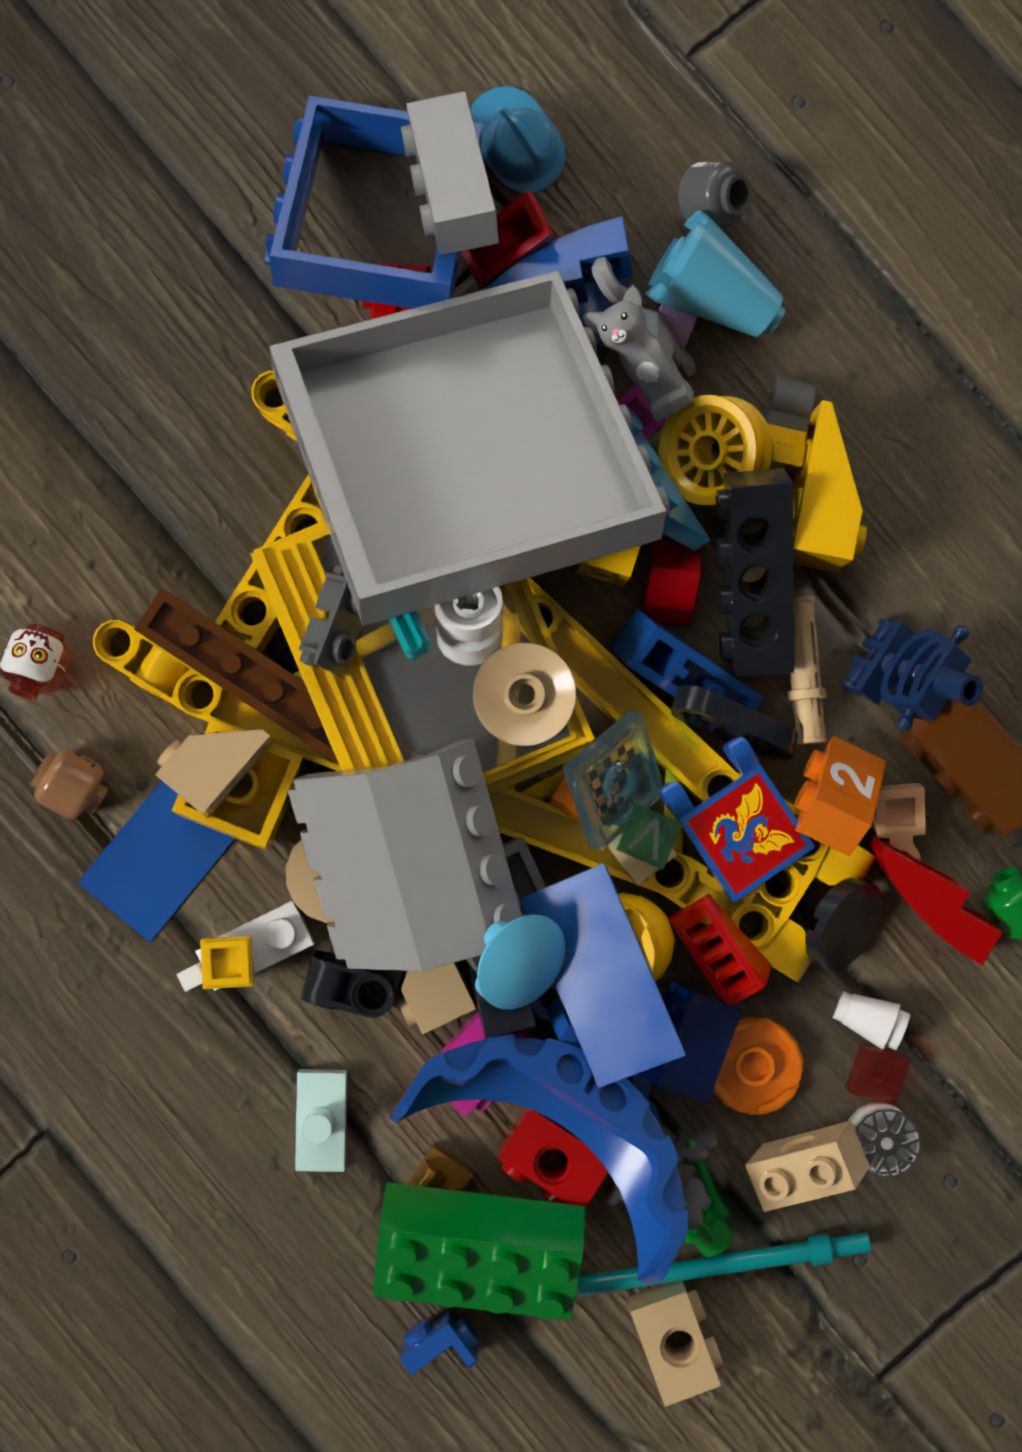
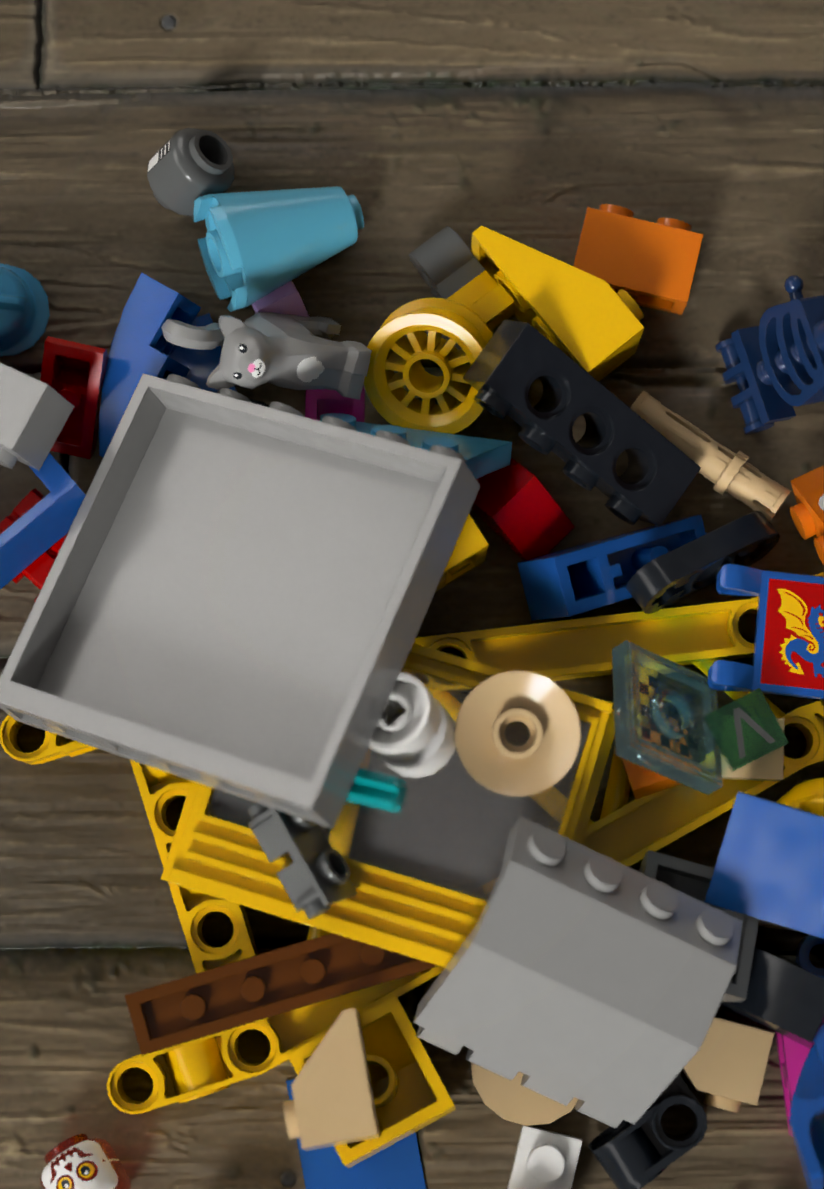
camera: 45 degrees left, 5 degrees down
(519, 961) = (766, 948): medium azure dish -> none
(897, 522) = (640, 256): none -> orange brick

